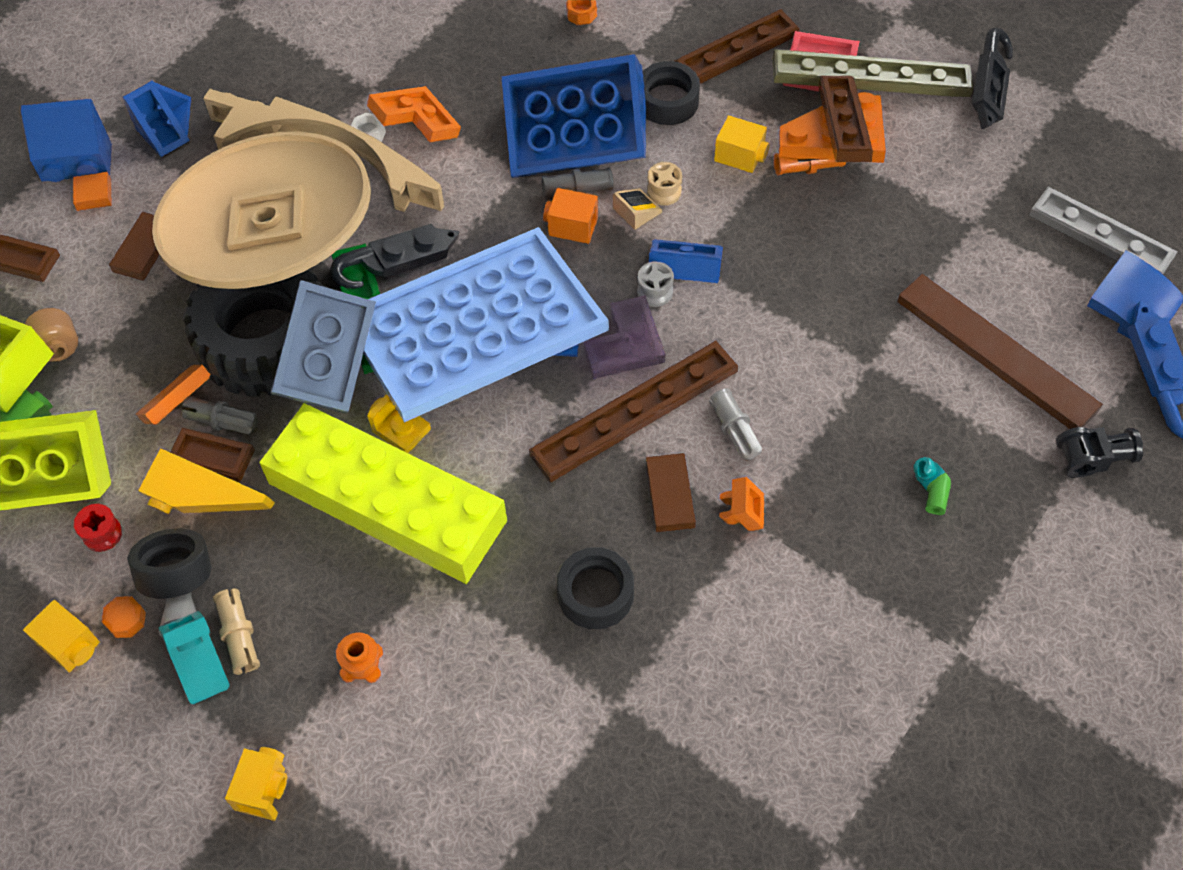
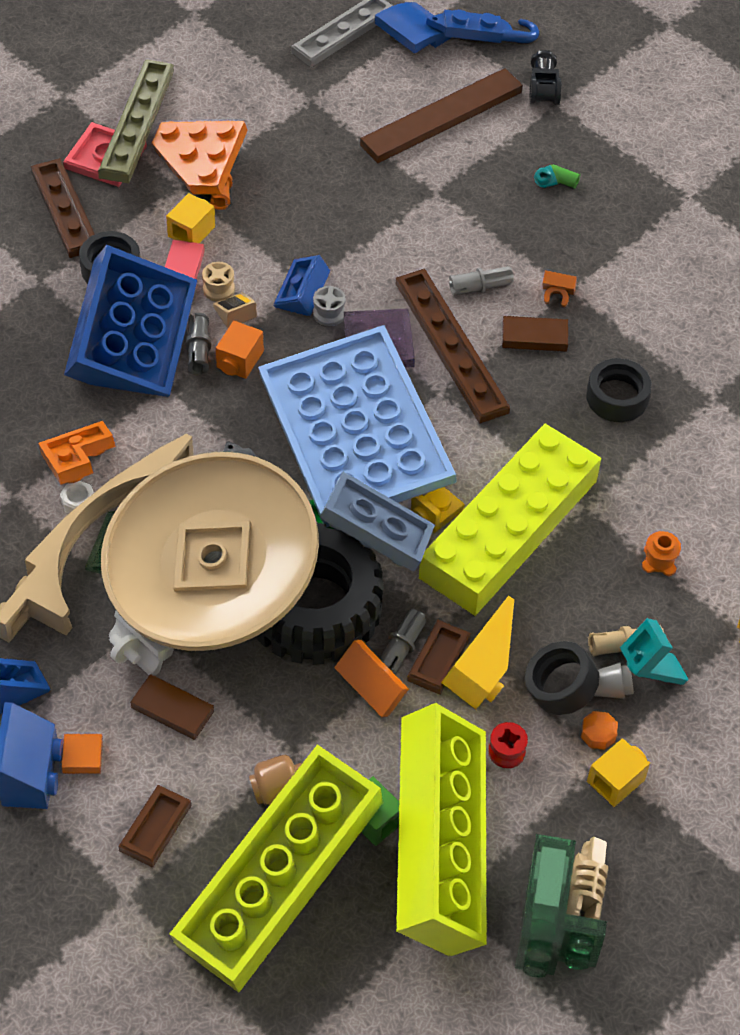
camera: 85 degrees left, 5 degrees down
(685, 152) = (185, 257): none -> coral tile
(845, 119) = (202, 136): reddish brown tile -> none
(992, 79) = (165, 49): black plate -> none

